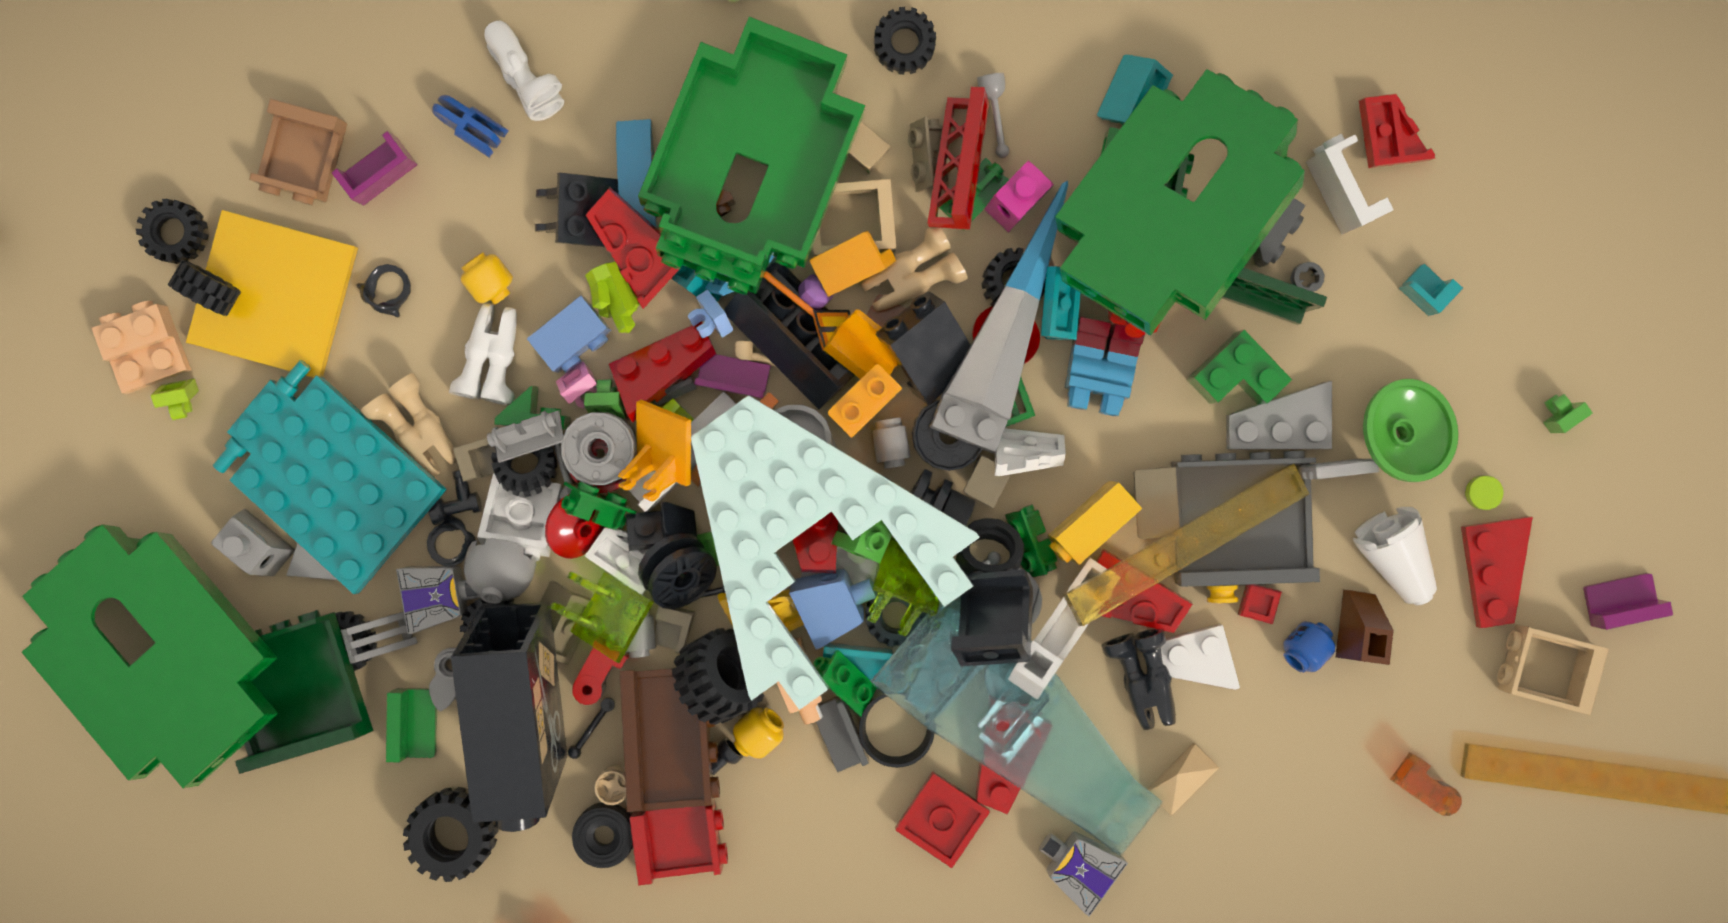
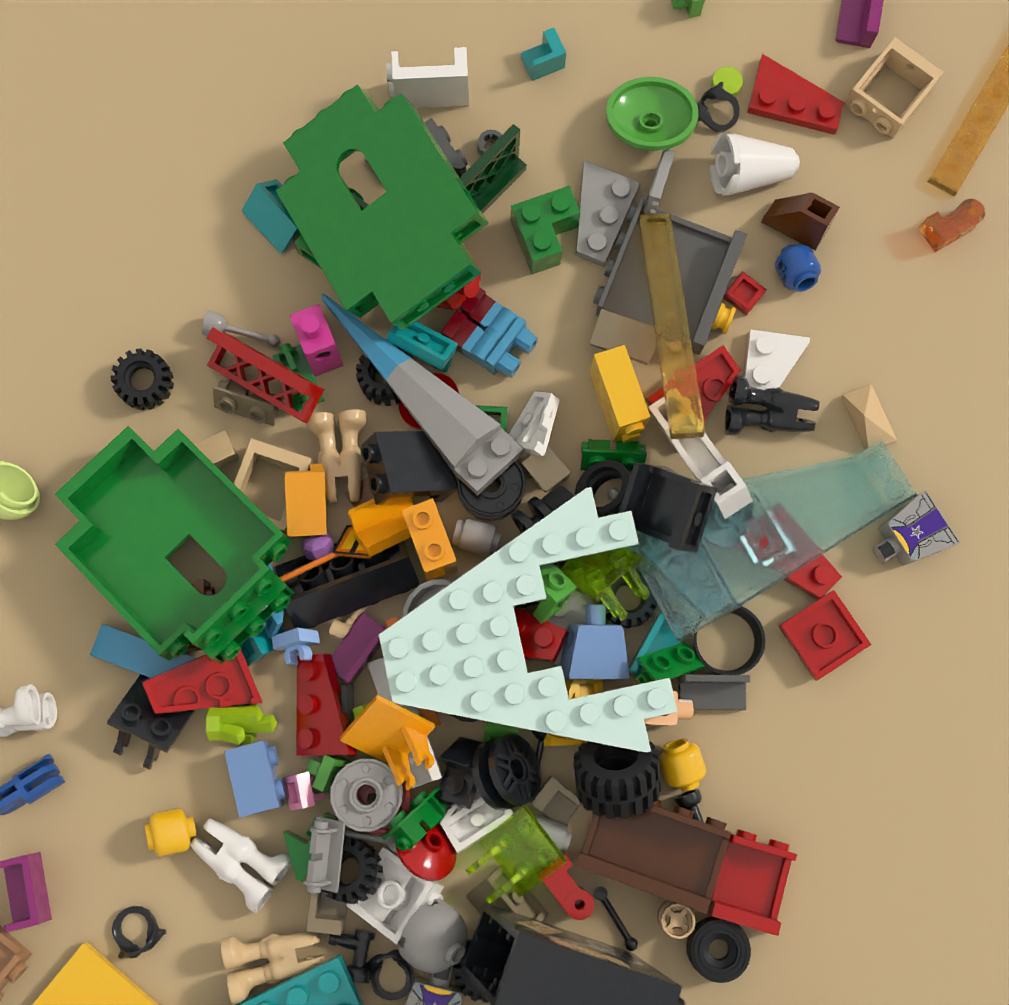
camera: 70 degrees left, 10 degrees down
(1390, 133) = (404, 33): red wing -> none
(1466, 490) = (717, 92): none -> black piece

